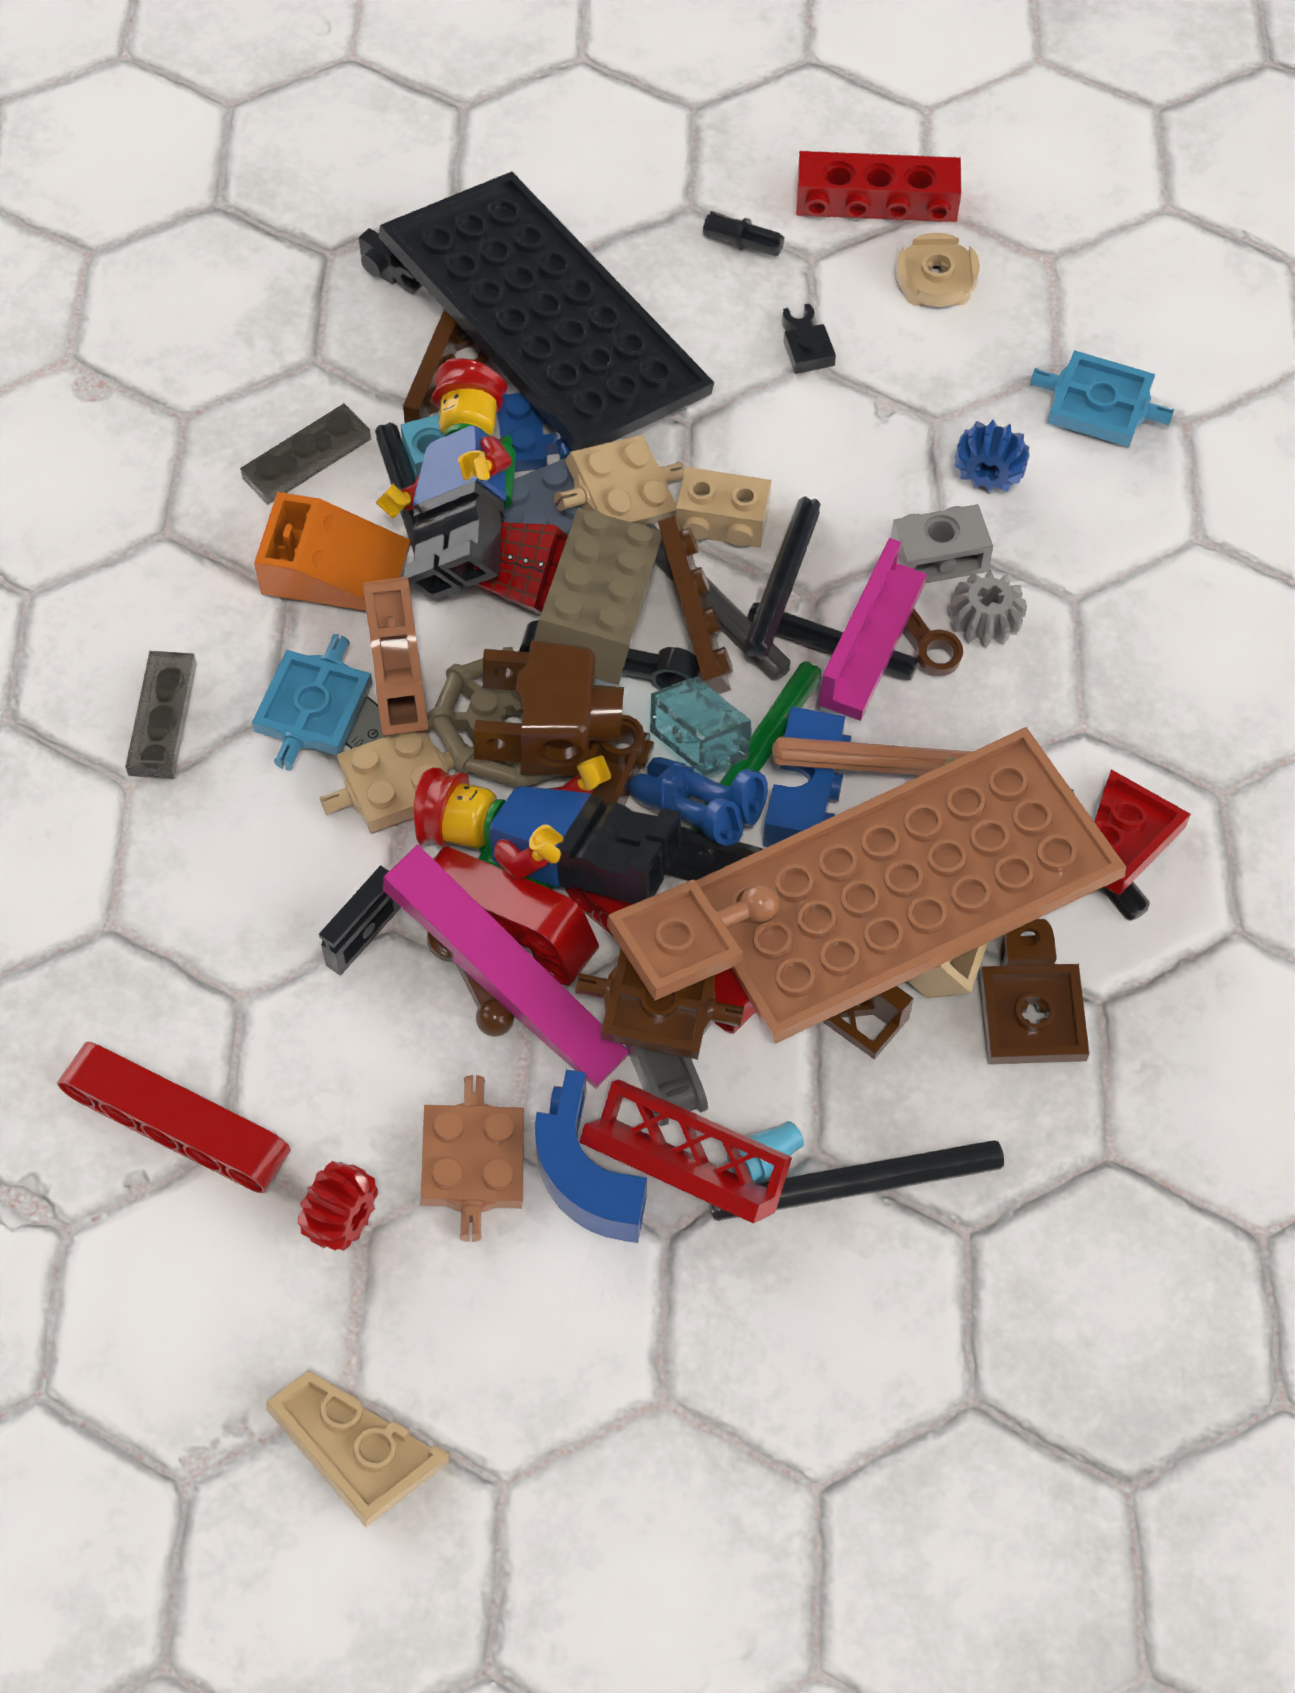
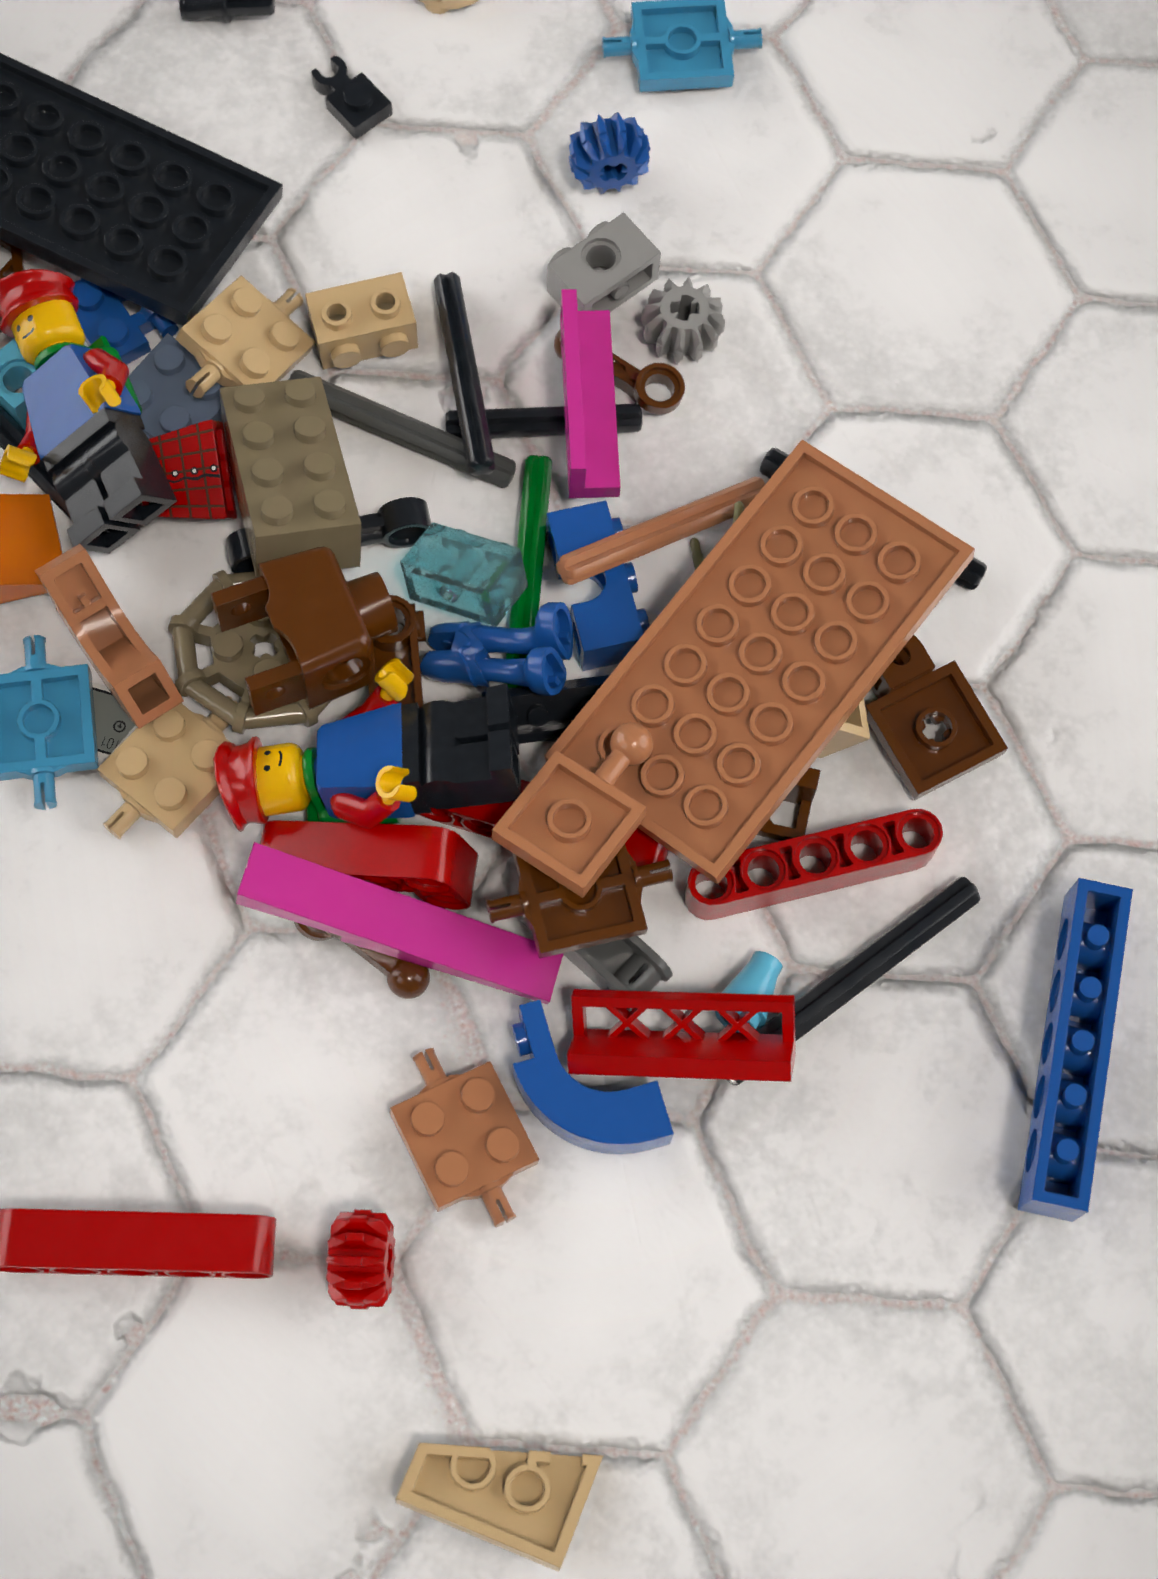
camera: 30 degrees left, 10 degrees up
(357, 923) = (222, 938): black plate -> none
(700, 619) = (379, 425): reddish brown plate -> none
(890, 1090) = (835, 852): none -> red beam
(1016, 1319) = (1075, 1051): none -> blue brick
(1136, 825) = (935, 484): red wing -> none

